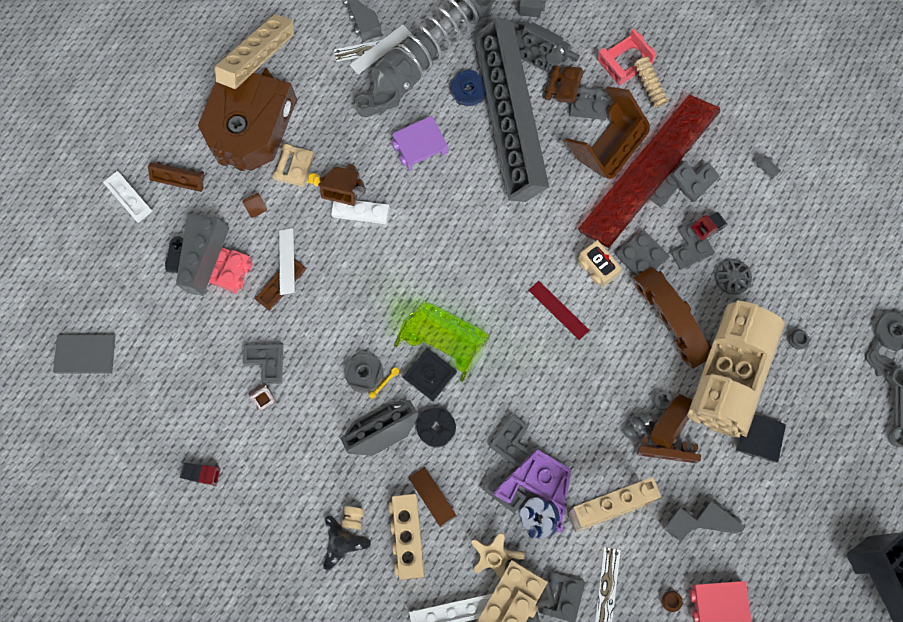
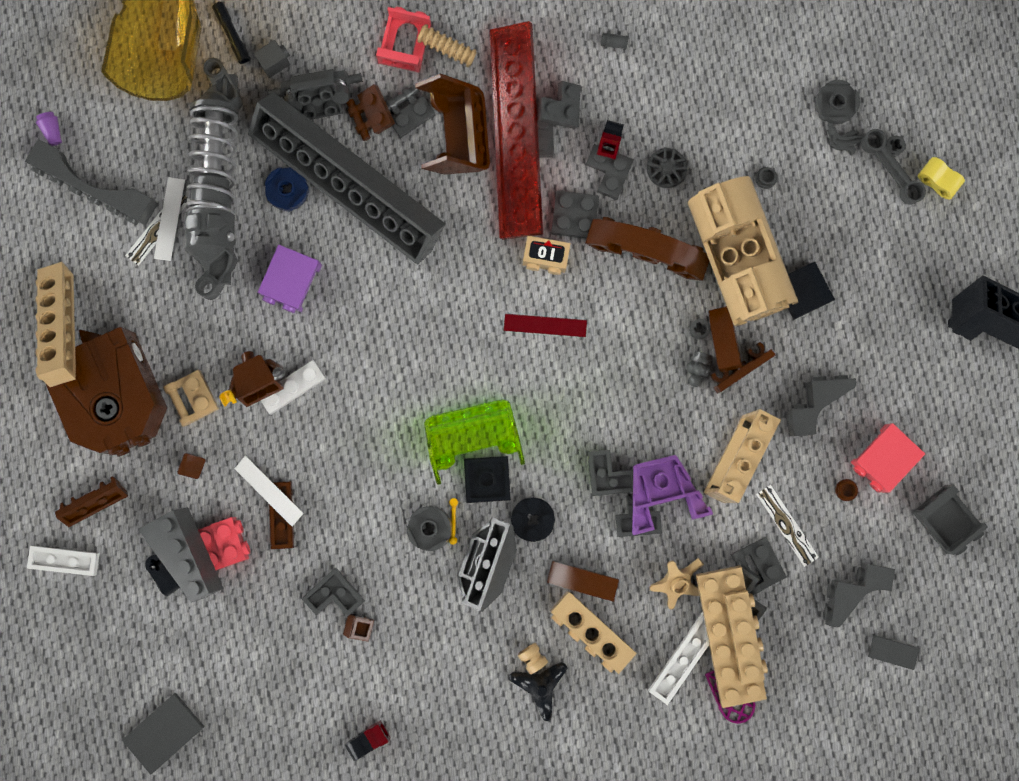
camera: 50 degrees left, 10 degrees up
(530, 521) = (687, 529): plate -> none

